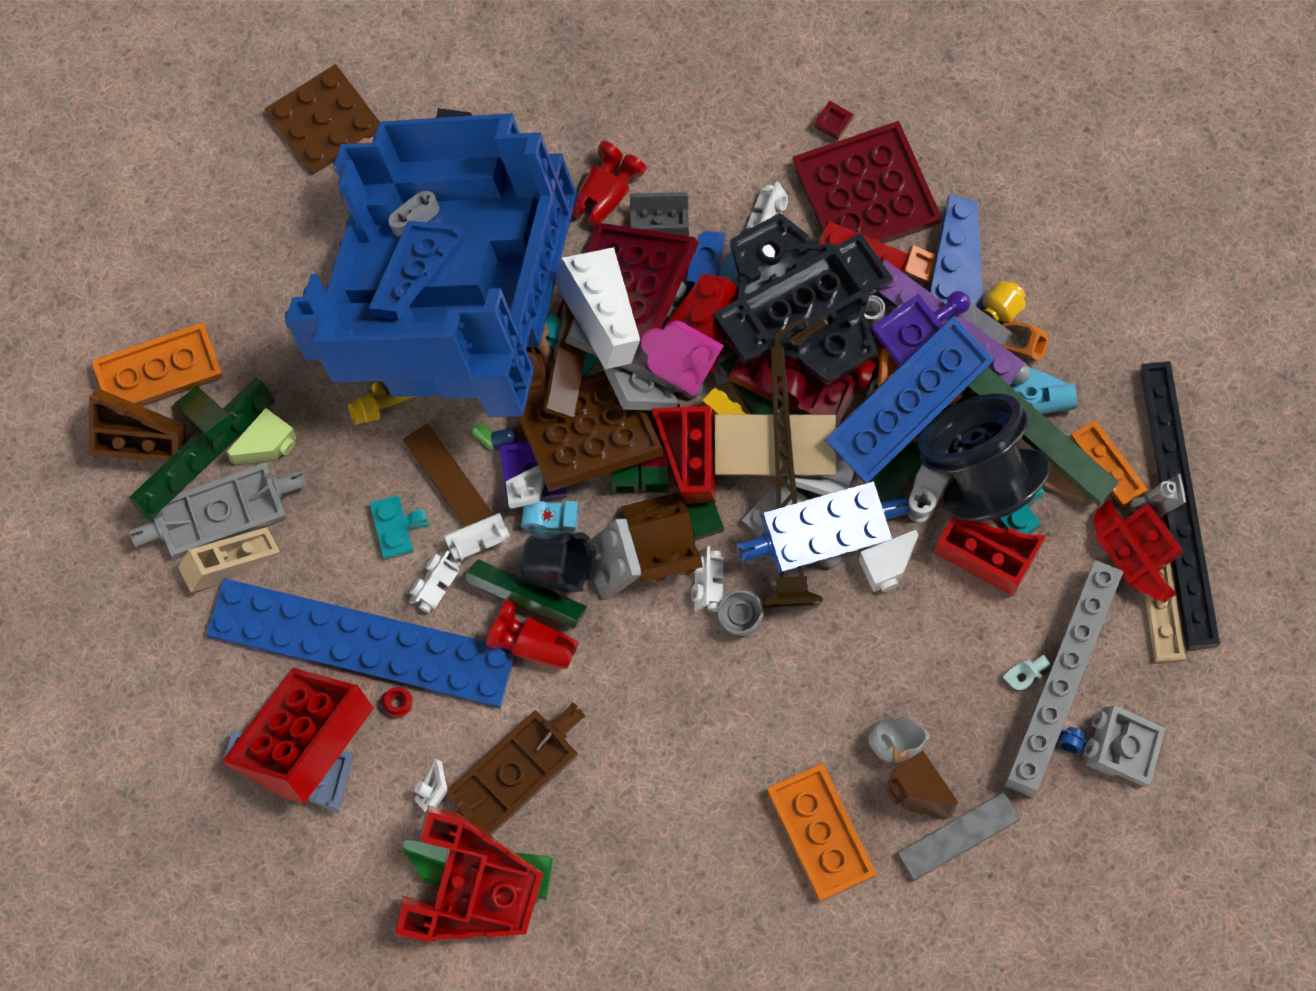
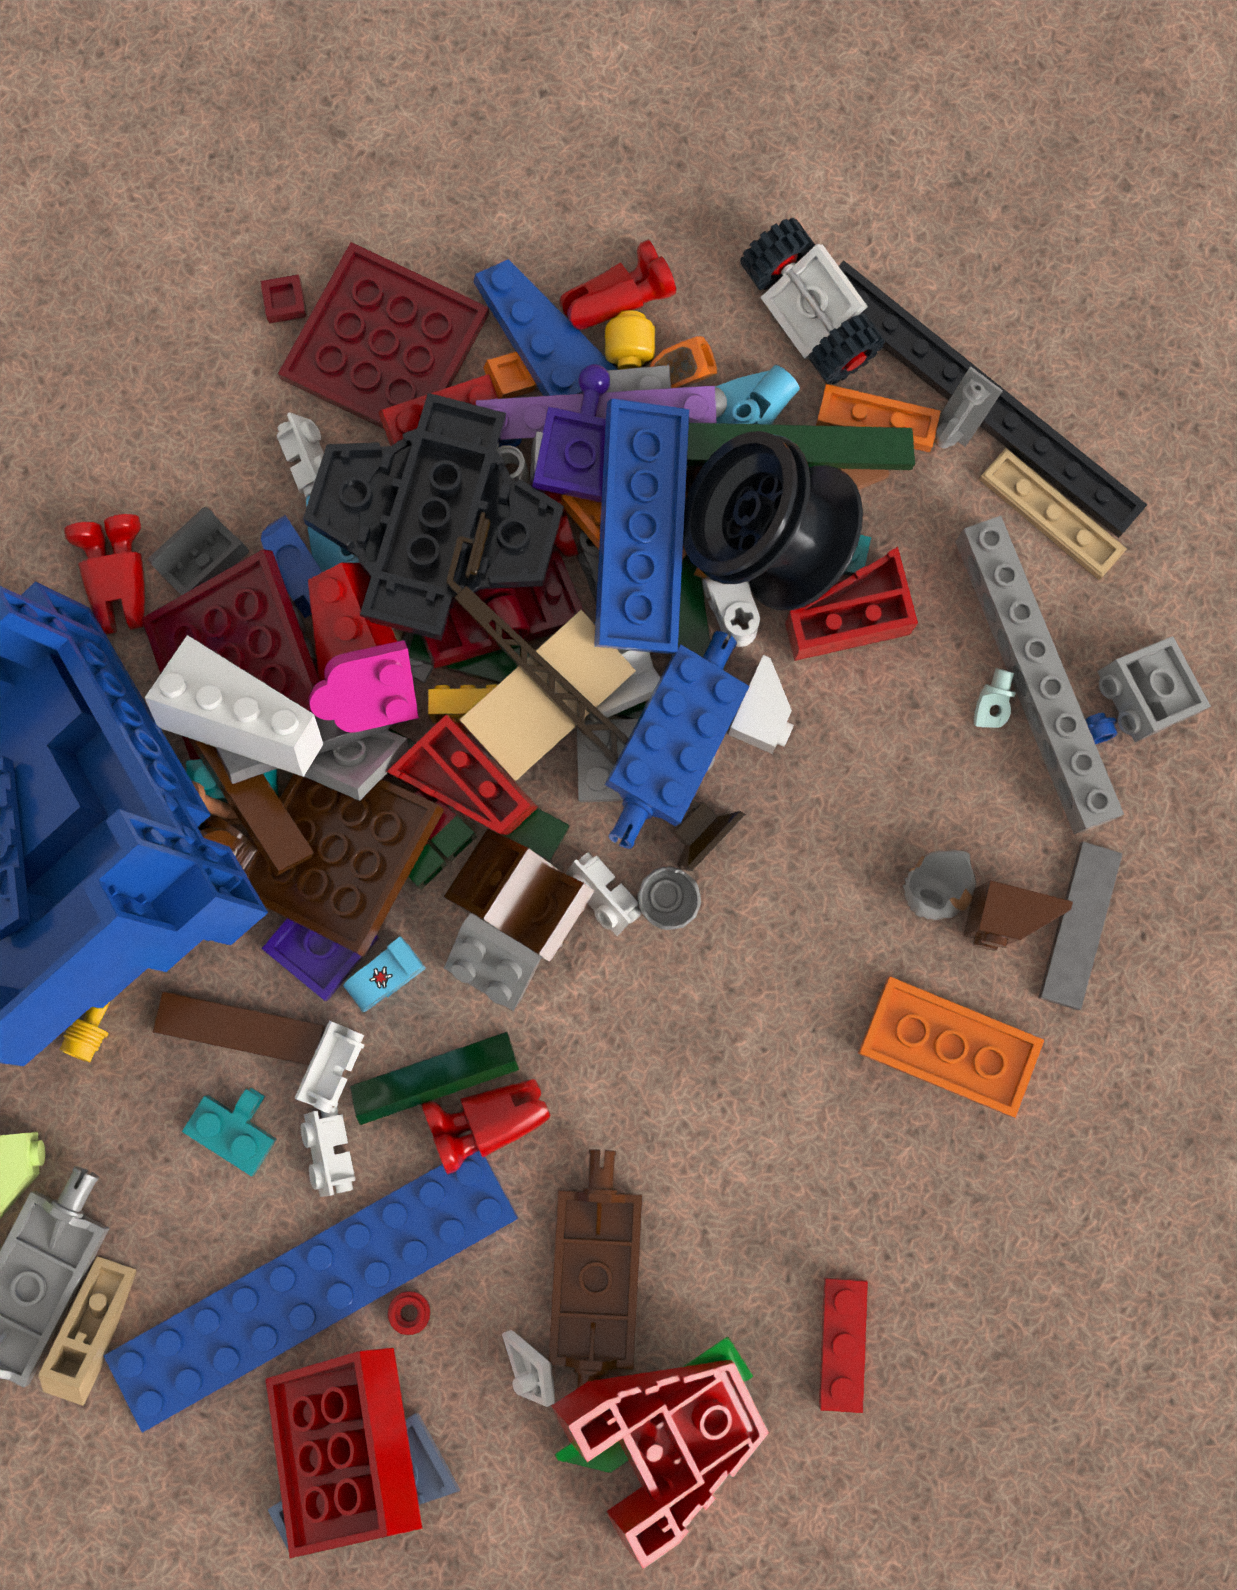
camera: 45 degrees left, 10 degrees up
(494, 439) = (249, 944): arm -> none
(525, 488) = (332, 972): white piece -> none
(557, 560) = (438, 1018): black cylinder -> none
(610, 933) = (843, 1345): none -> red plate
(1023, 269) = (619, 290): none -> red piece
(1129, 367) = (812, 300): none -> plate
(1138, 547) = (987, 478): red plate -> none

